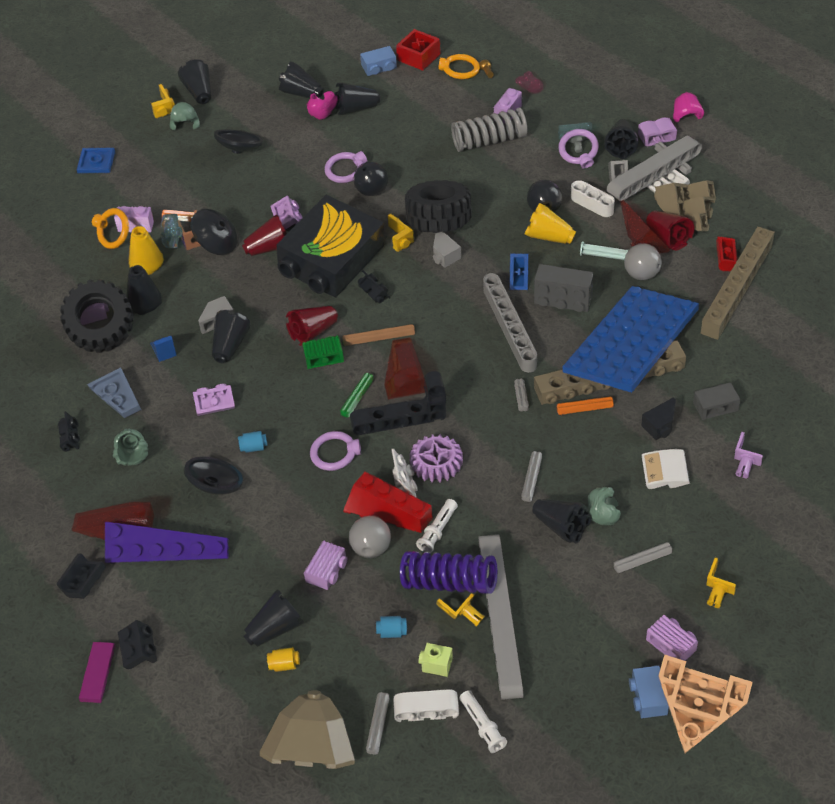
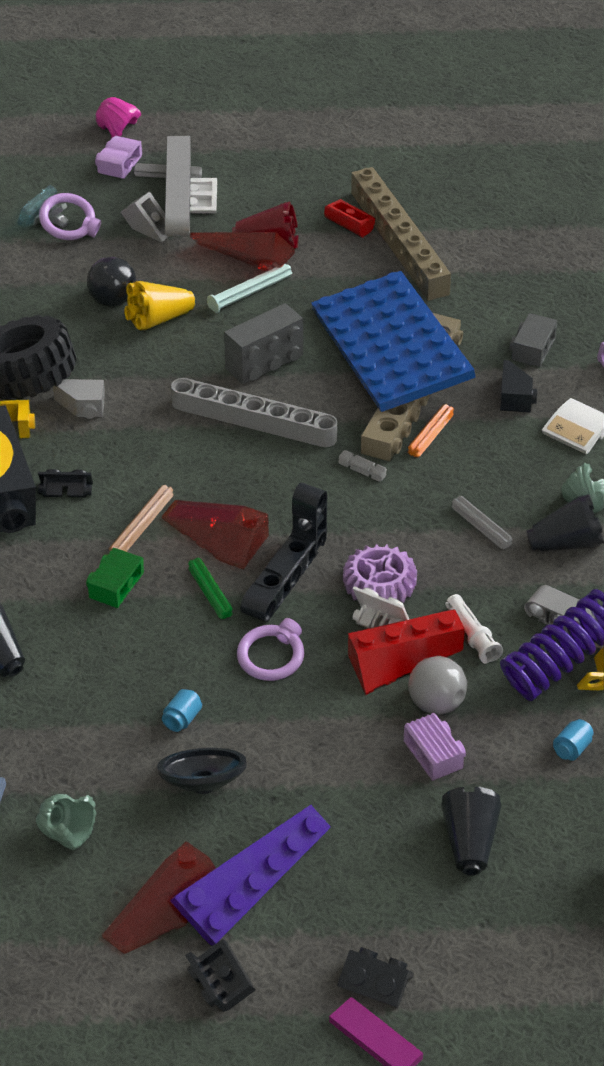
camera: 55 degrees left, 5 degrees down
(213, 399) = (75, 708): lavender bracket -> none
(283, 659) = (529, 854): yellow brick -> none
(310, 322) = (61, 563): dark red cone -> none
(518, 271) = (190, 361): blue slope -> none
(592, 198) = (156, 253): white beam -> none
(621, 140) = (100, 181): black cone -> none
(642, 261) = (297, 271): light grey piece -> none
(688, 201) = (247, 195): dark tan brick -> none

